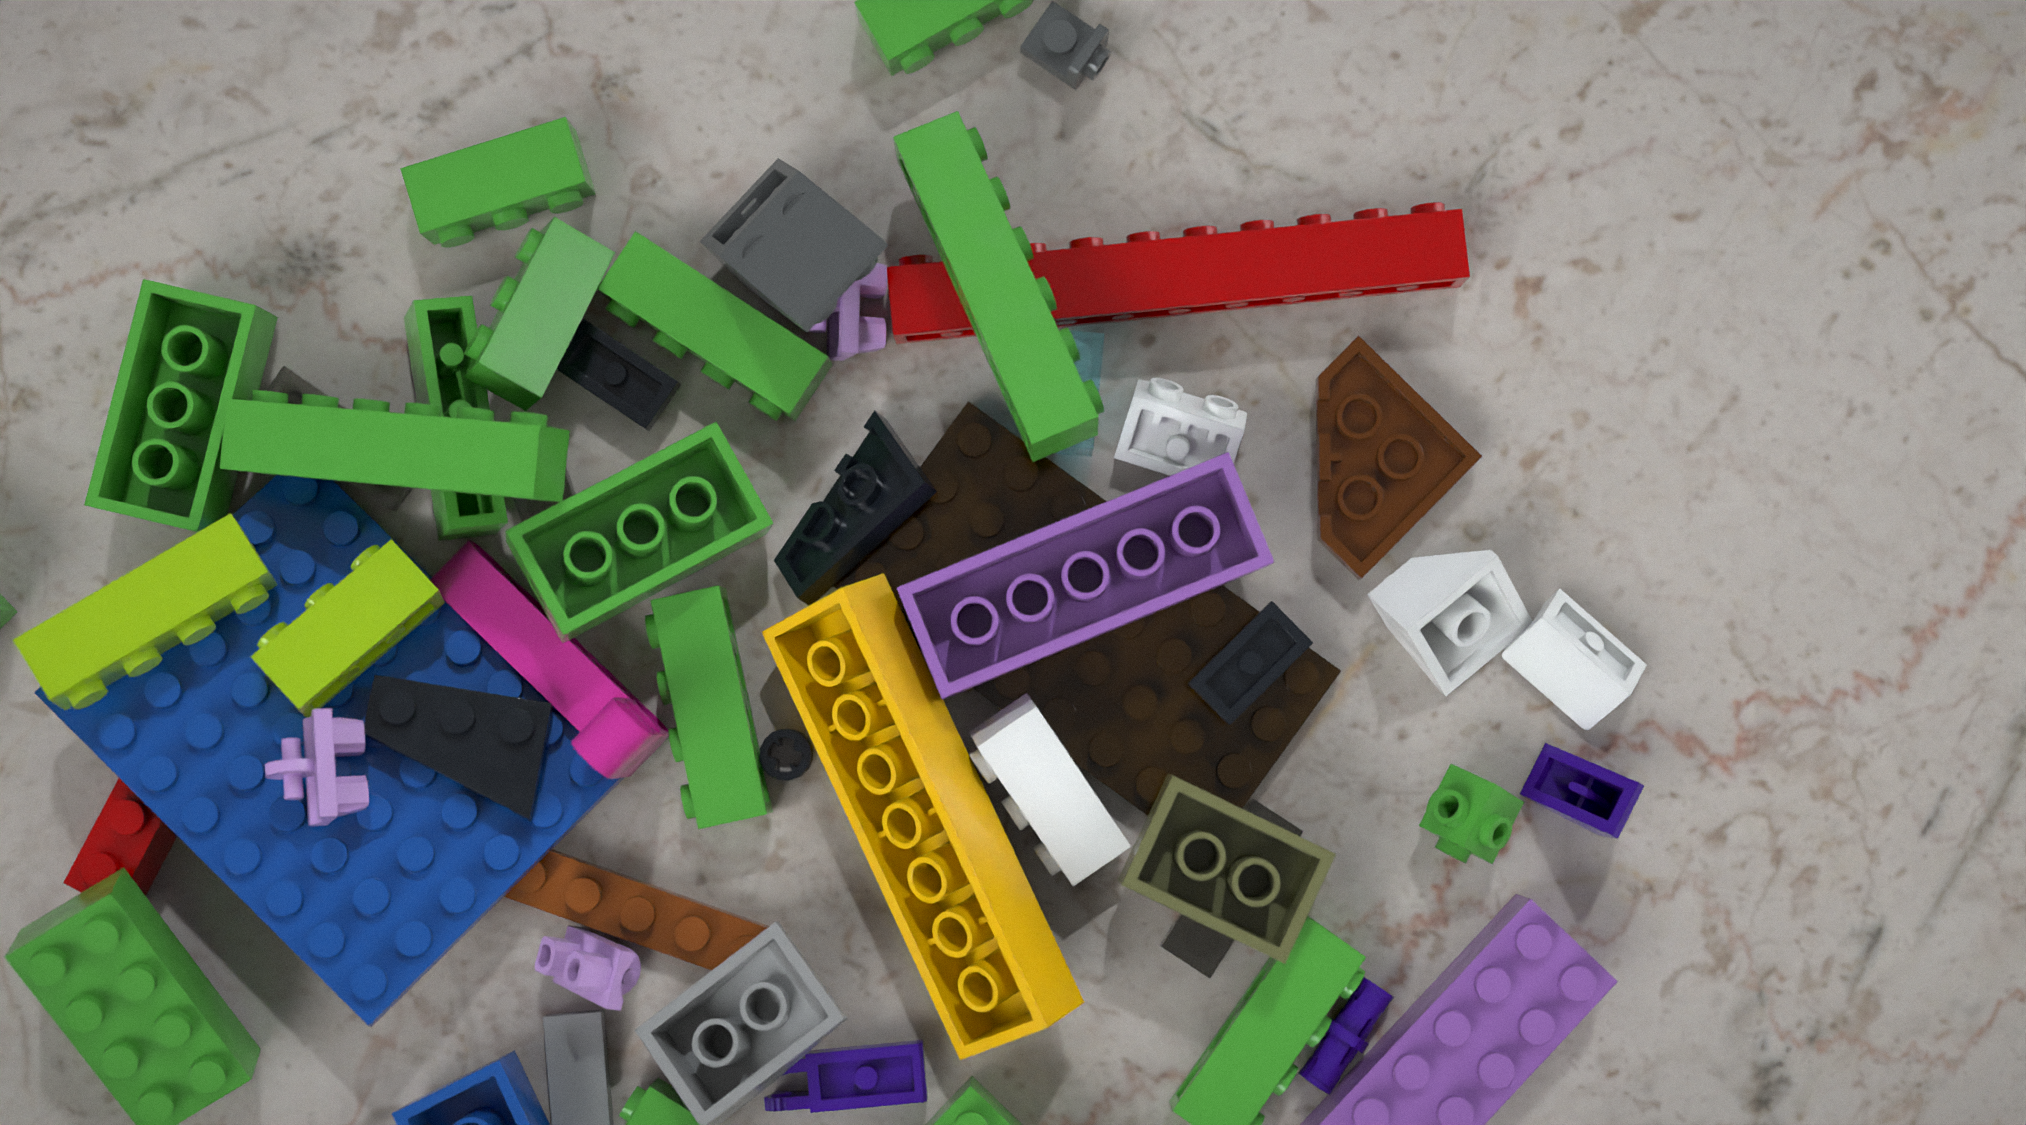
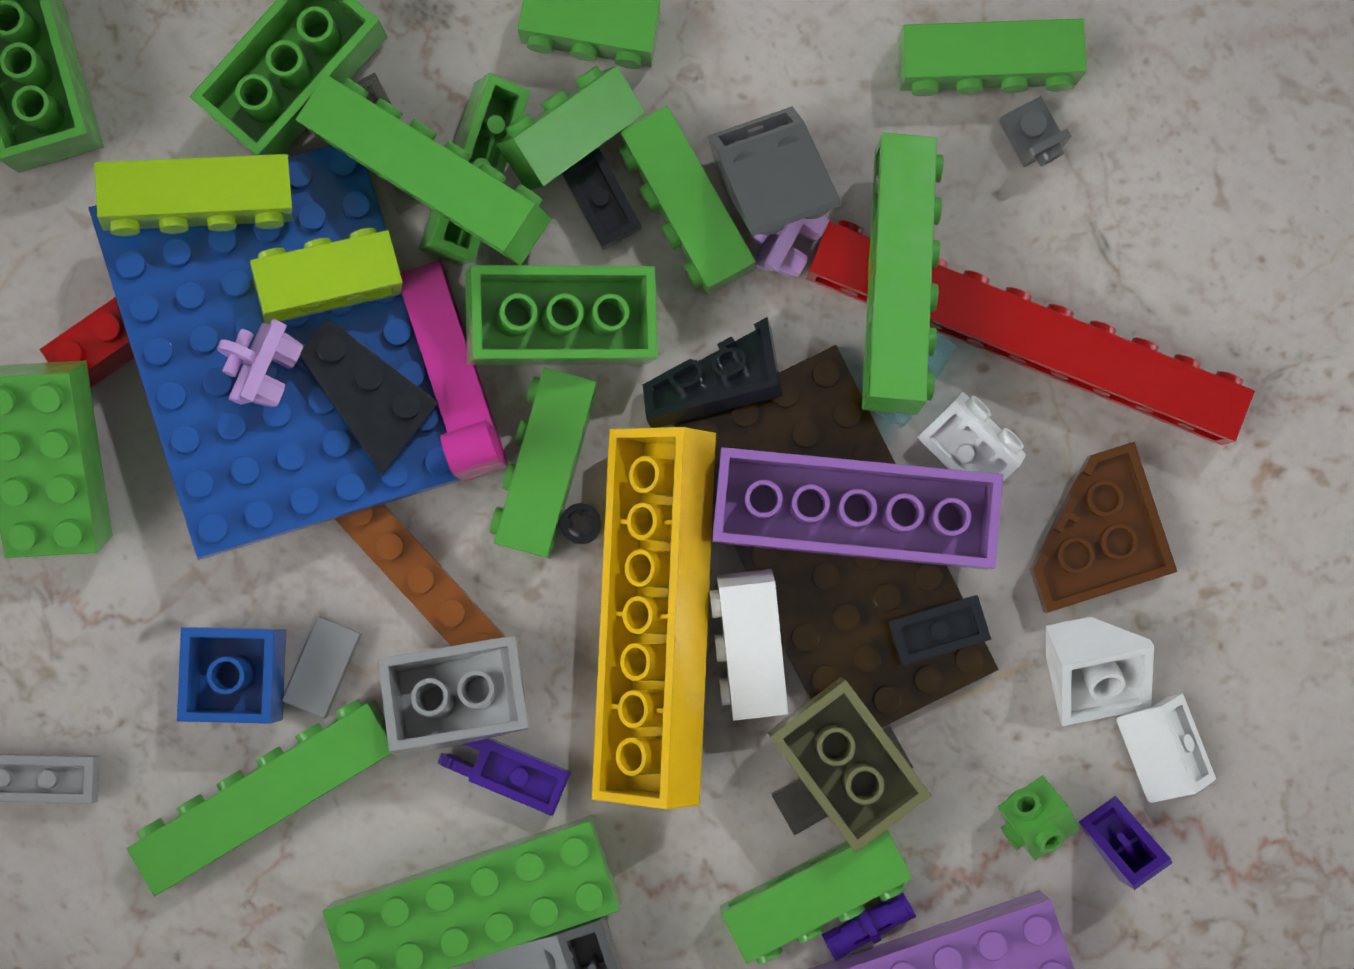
camera: 25 degrees right, 0 degrees up
(589, 966) = (368, 598): lavender hips -> none

